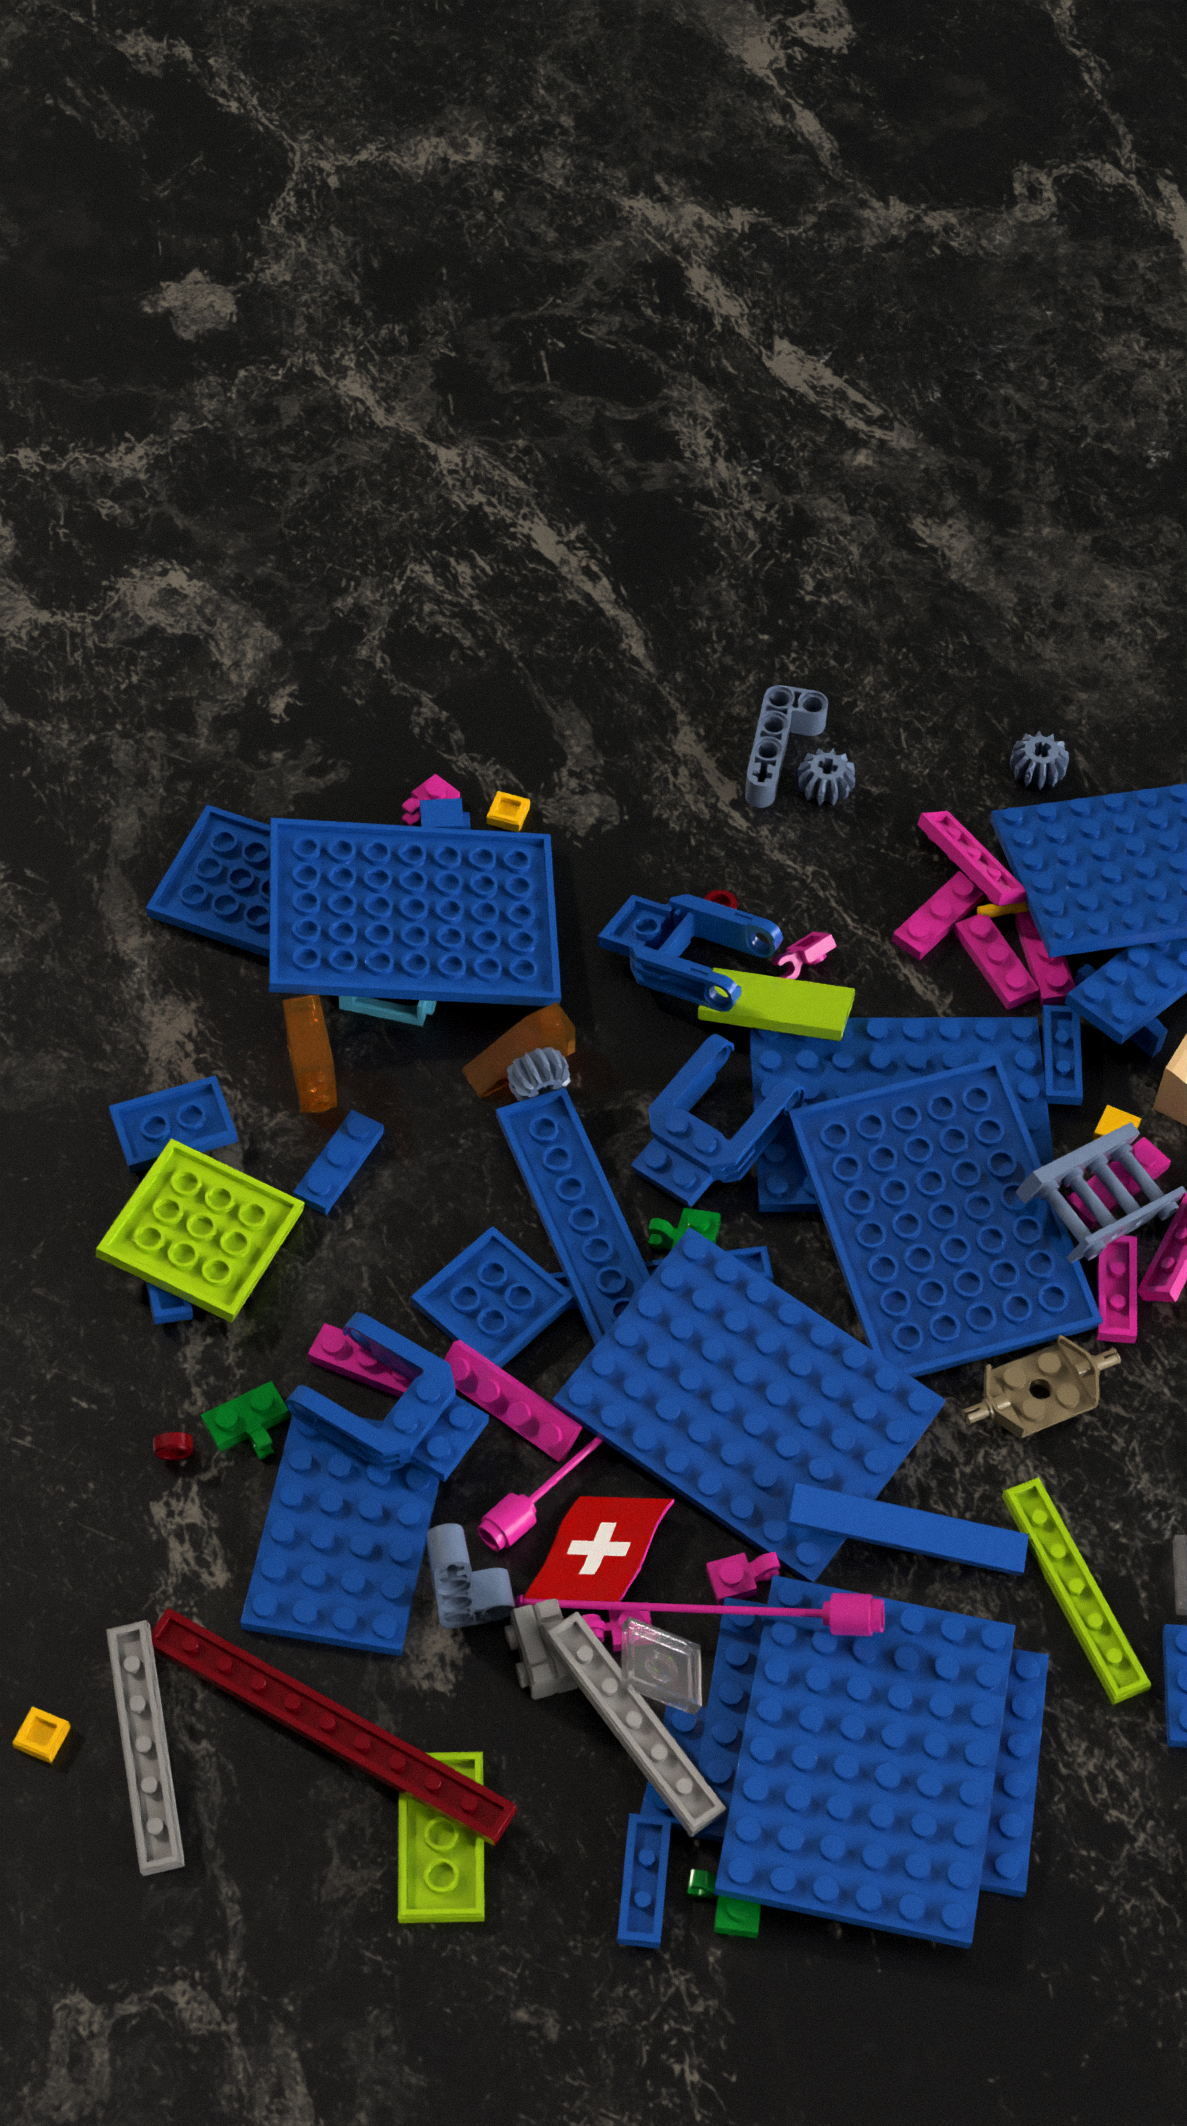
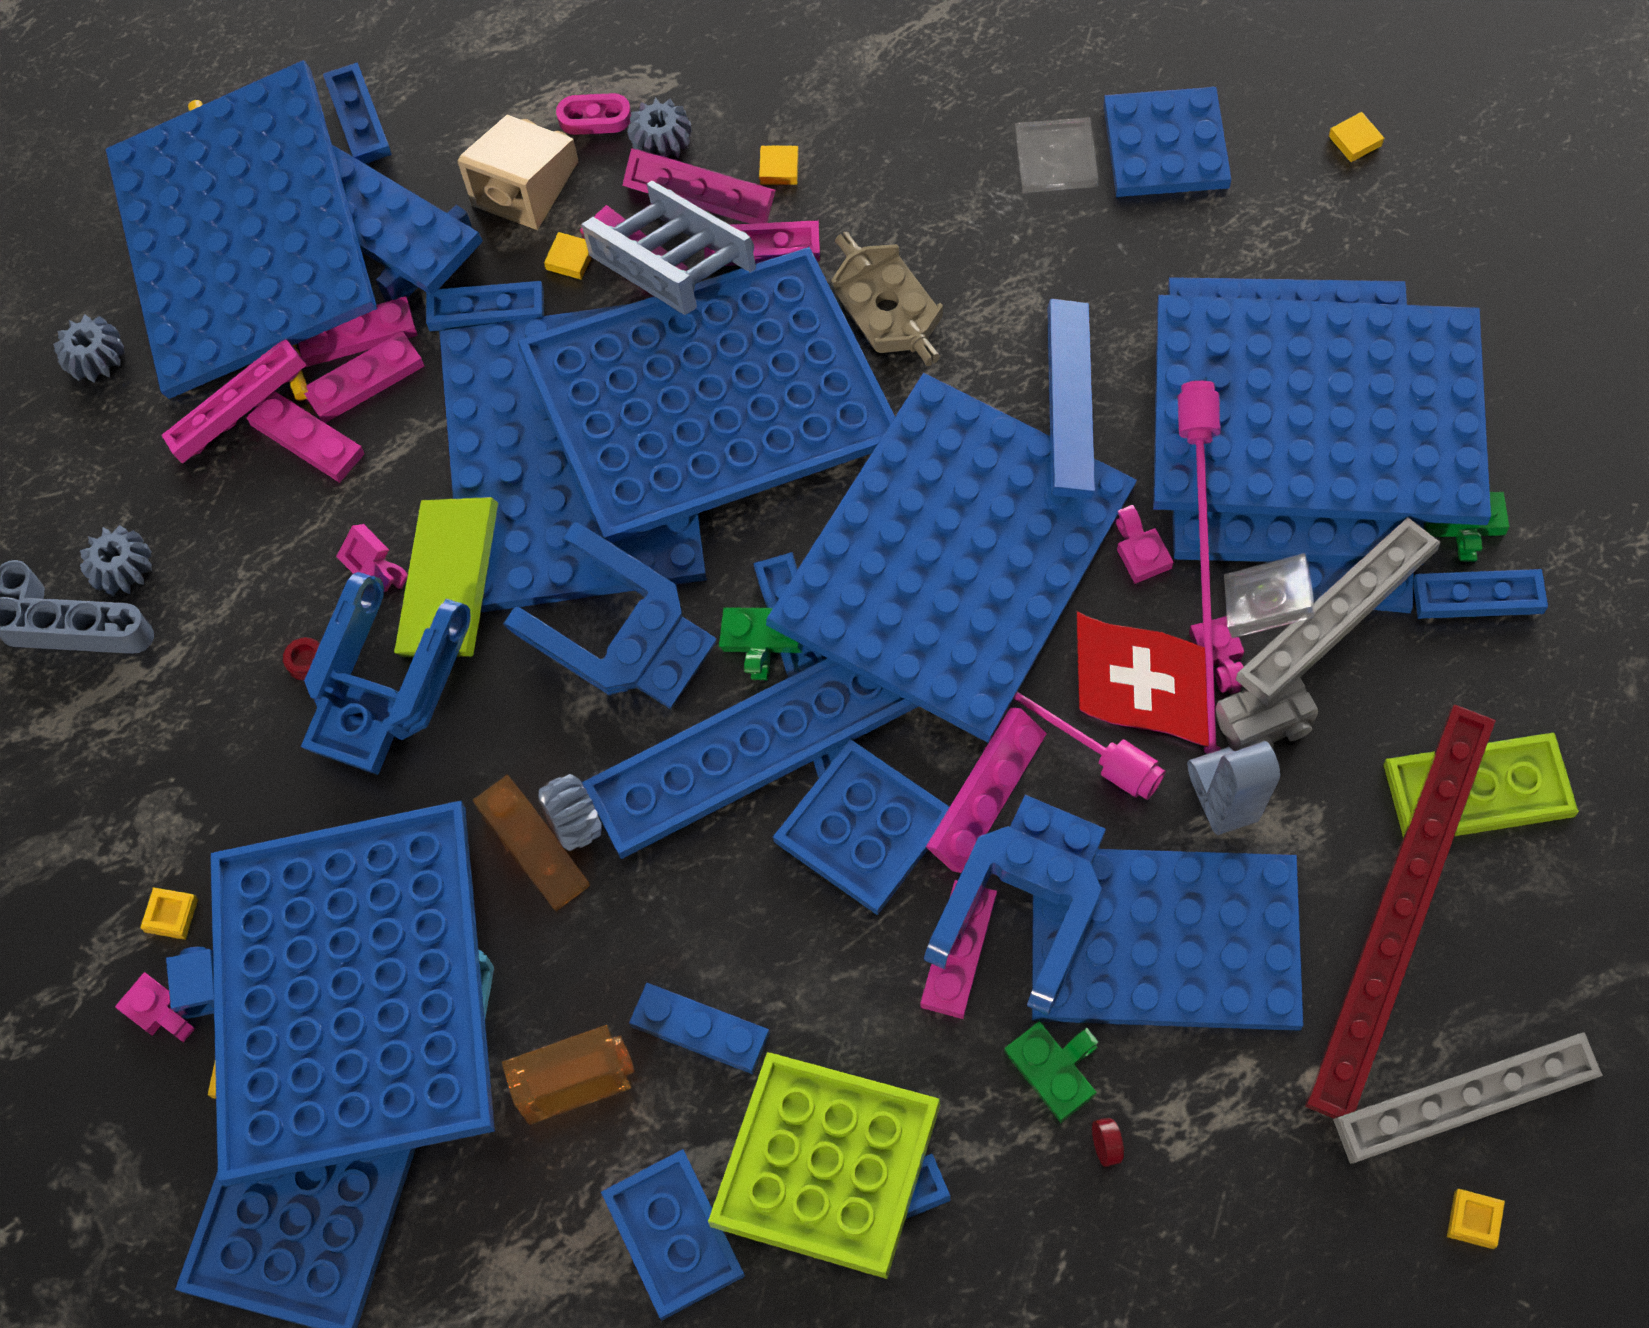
camera: 90 degrees left, 10 degrees up
(1076, 1591) = (1091, 264): lime tile -> none

